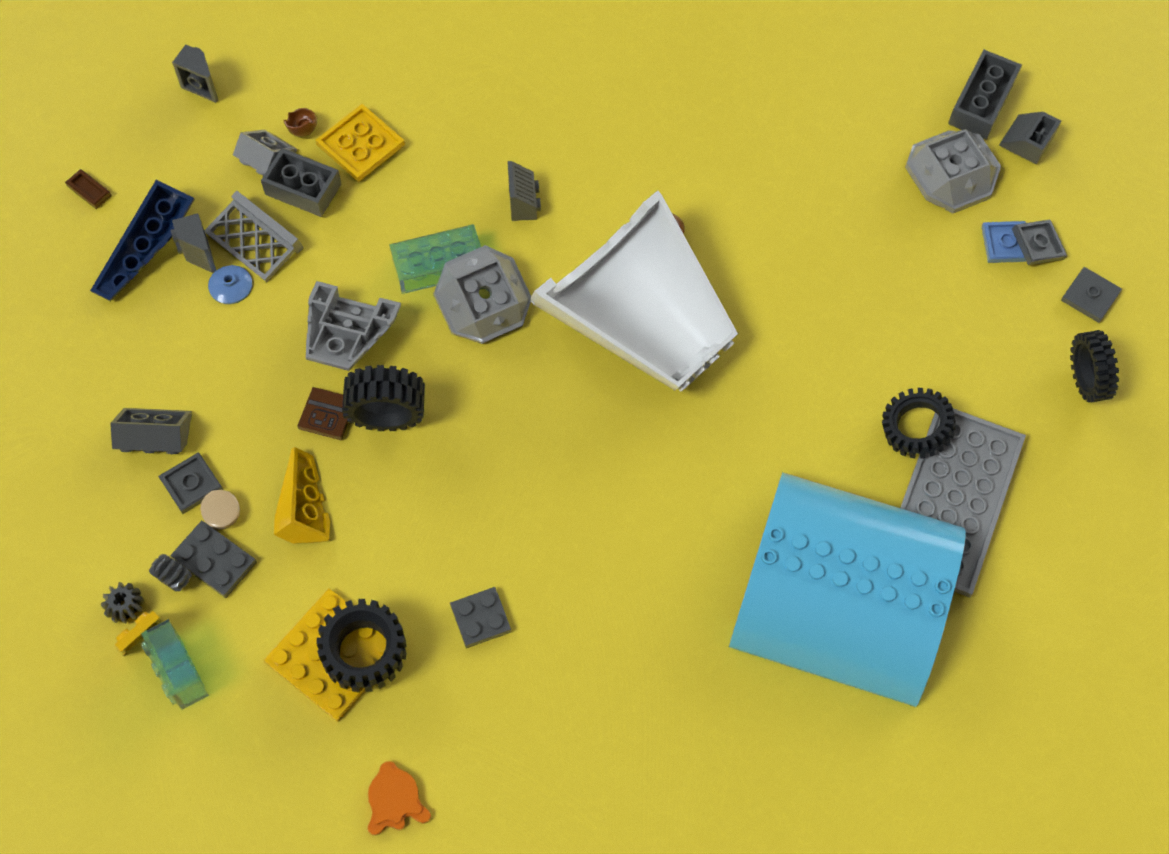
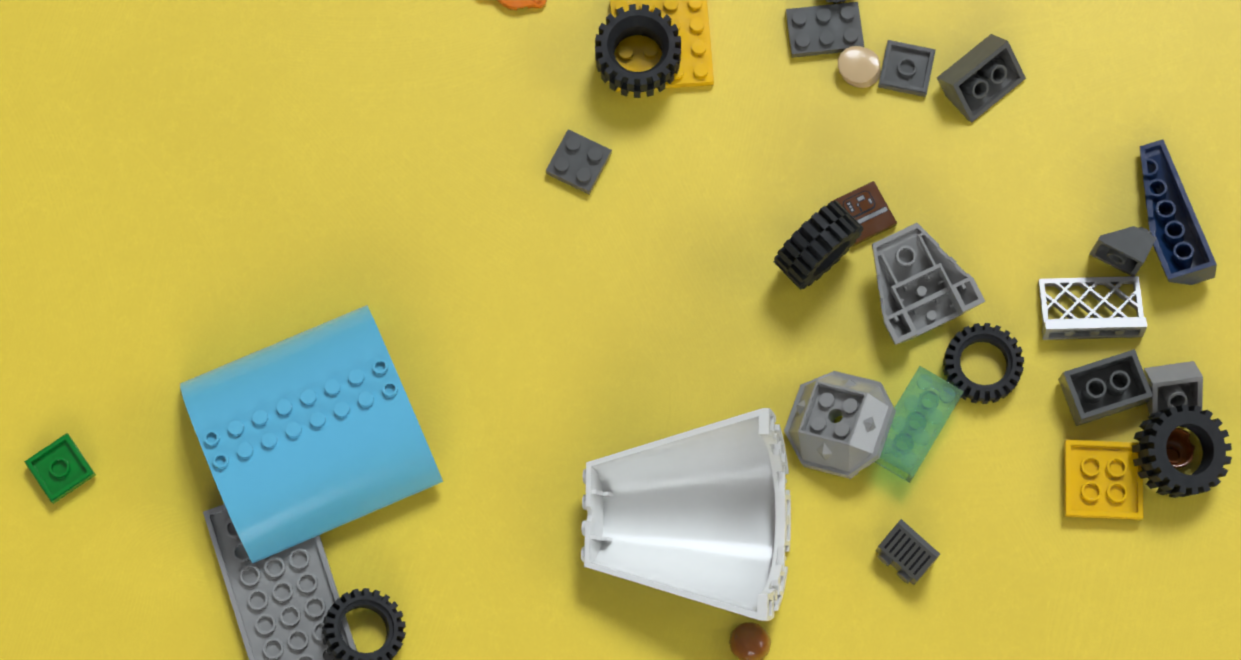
camera: 140 degrees right, 10 degrees up
(233, 291) = (1059, 262): medium blue dish -> none
(300, 507) = (802, 122): yellow wedge -> none
(304, 125) = (1154, 458): none -> black tyre
(348, 239) = (997, 338): none -> black tyre
(1058, 717) = (60, 468): none -> green plate

